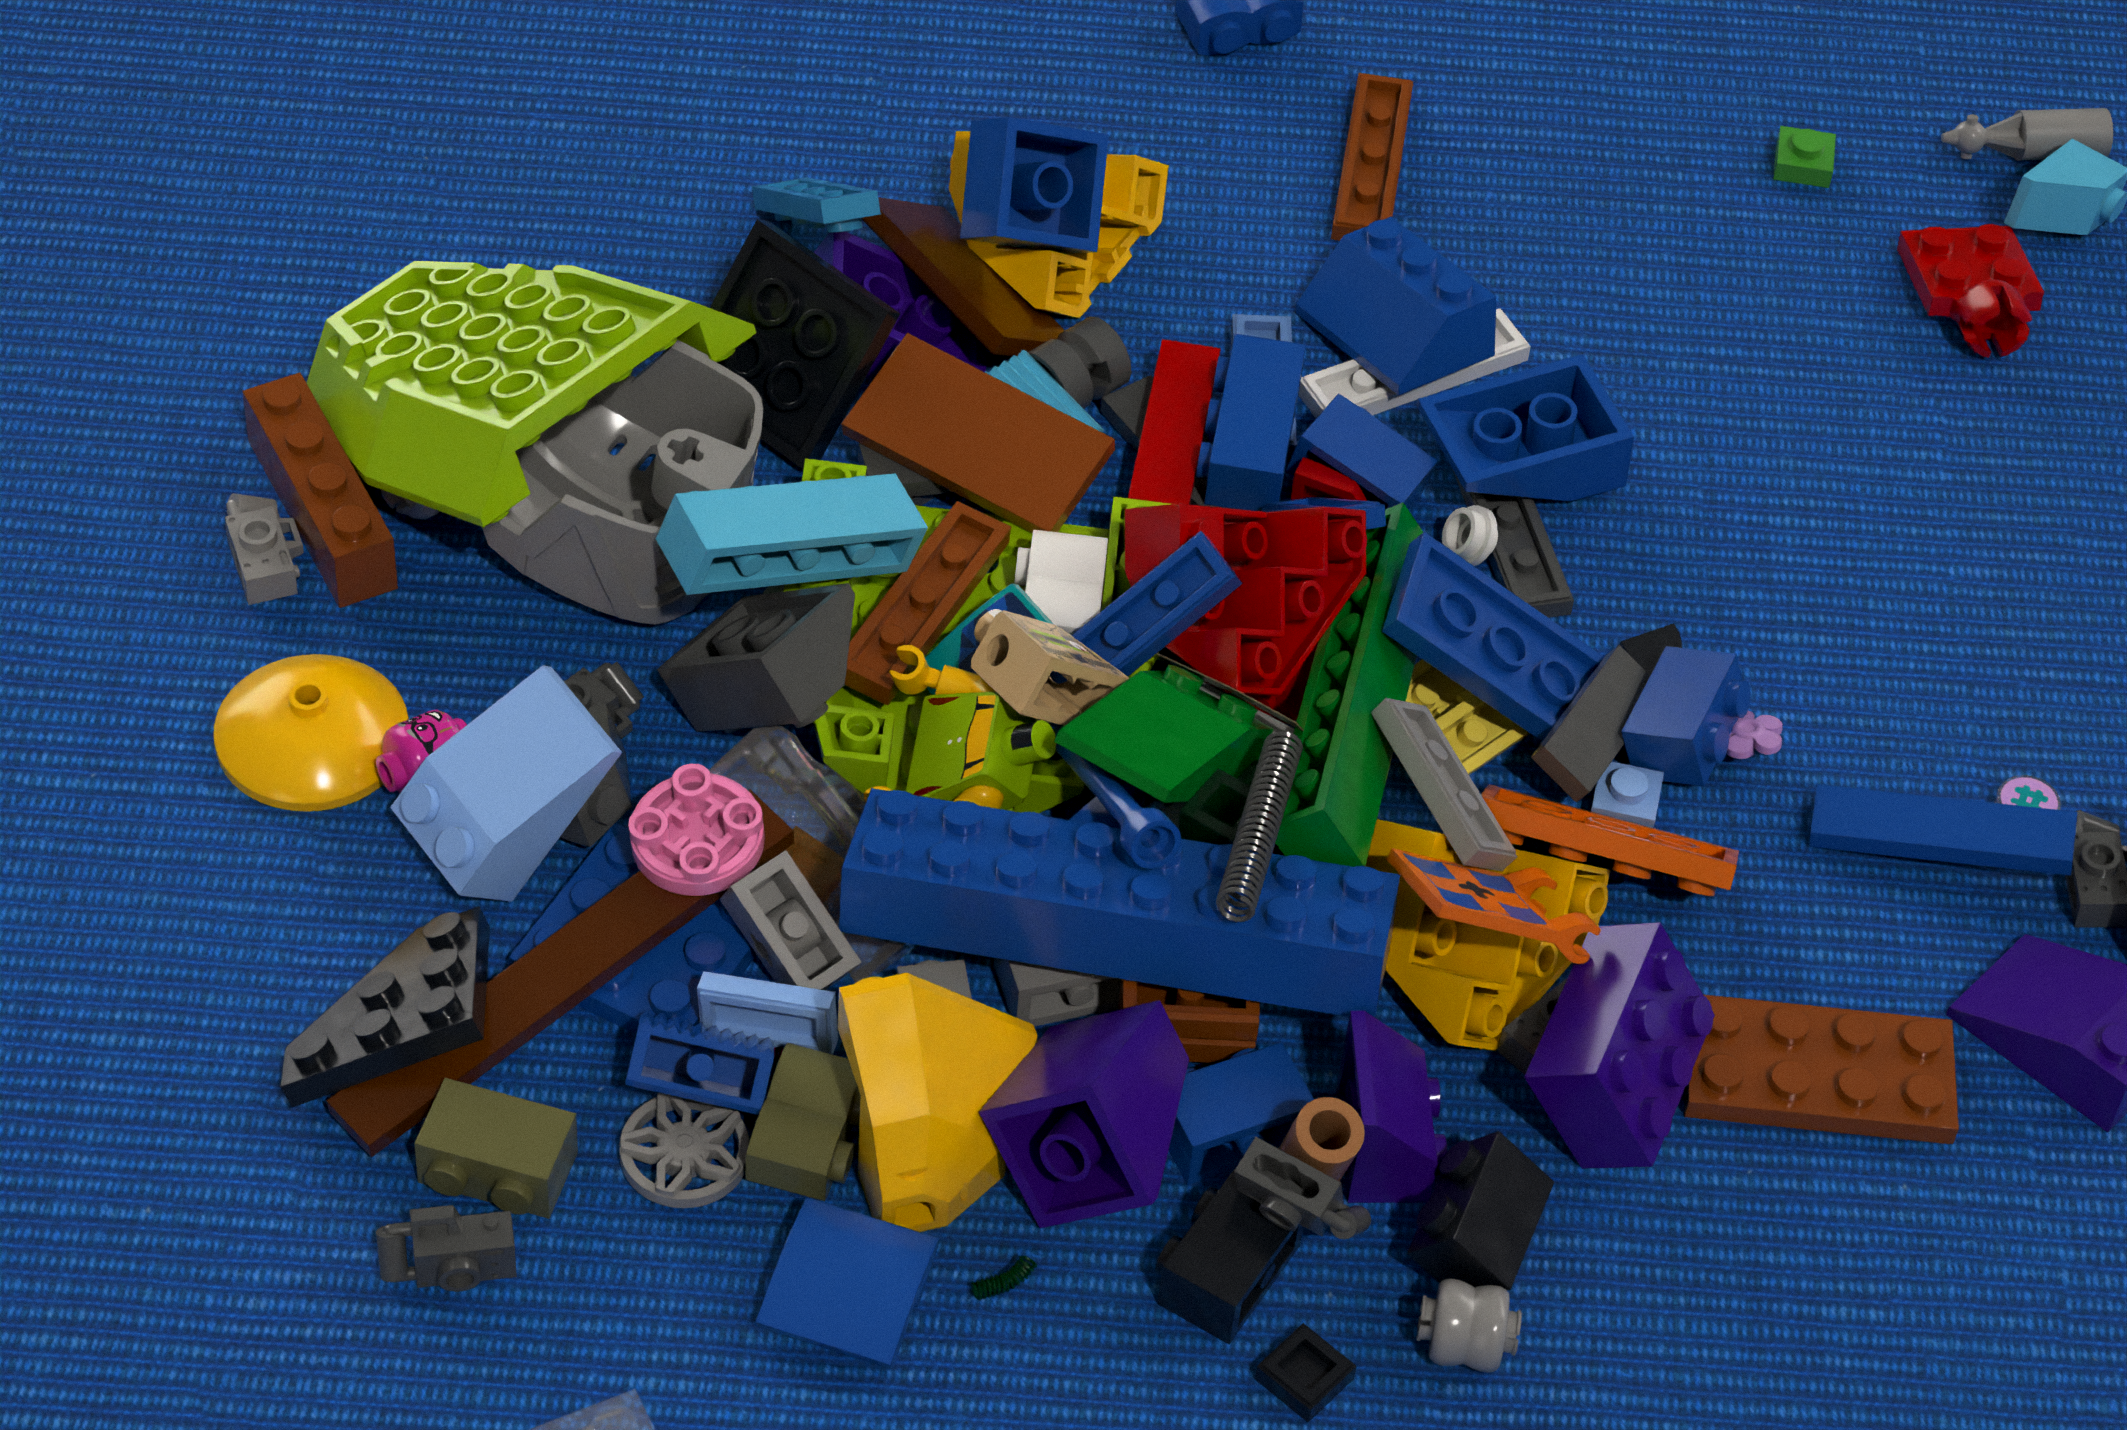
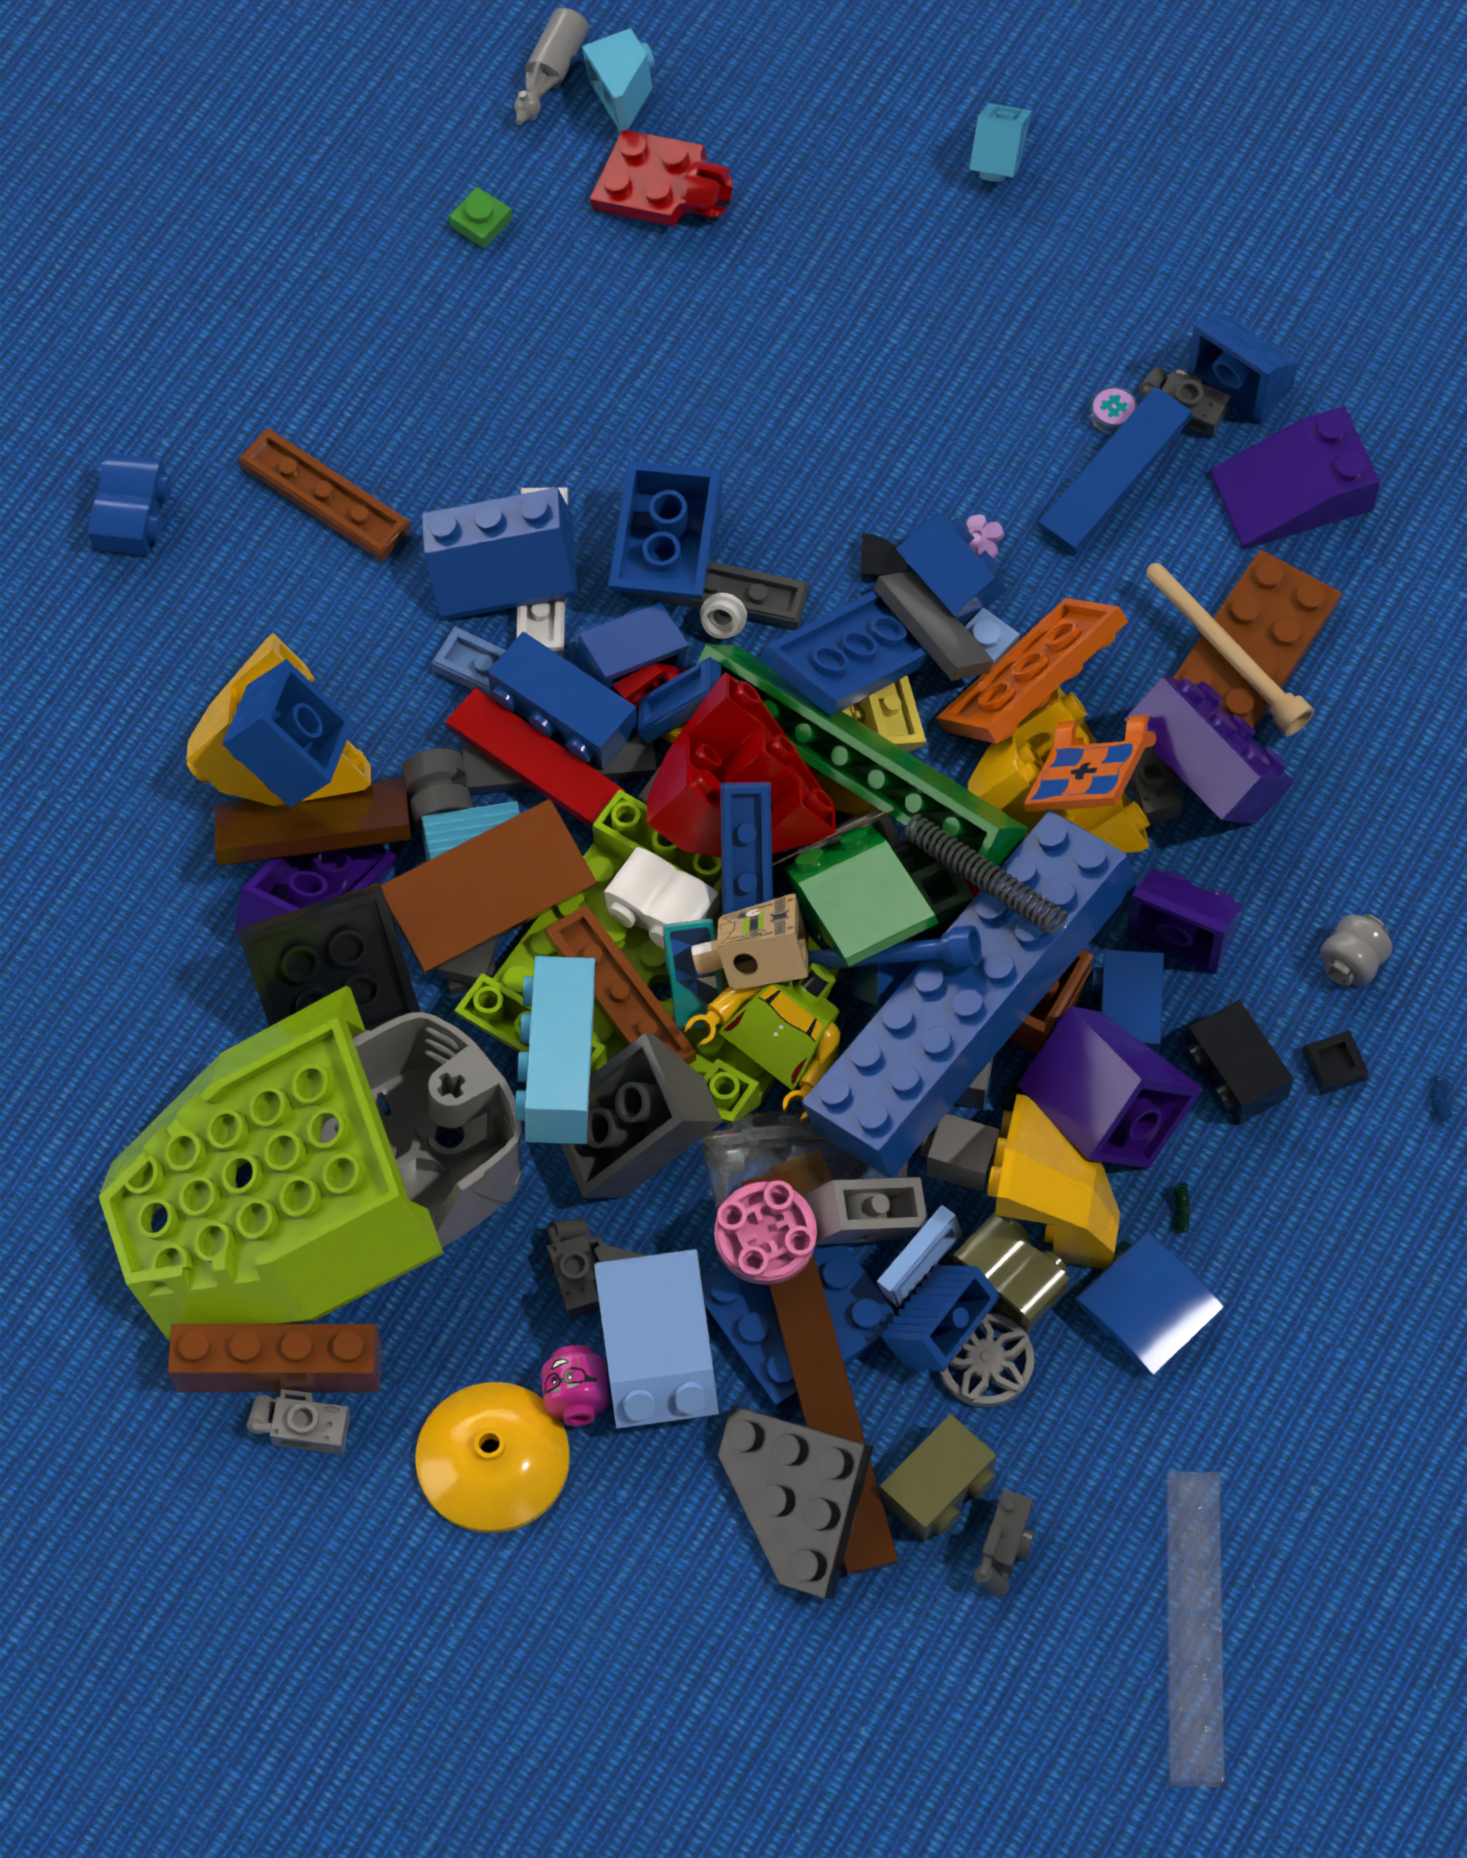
camera: 55 degrees left, 15 degrees up
(817, 203) = (200, 888): dark azure plate -> none
(1297, 1193) = (1242, 999): dark grey piece -> none
(1325, 1136) = (1204, 973): medium nougat brick -> none
(1444, 784) = (974, 745): light grey tile -> none
(1480, 1213) = (1287, 901): black brick -> none
(1744, 1120) = (1289, 711): none -> tan piece

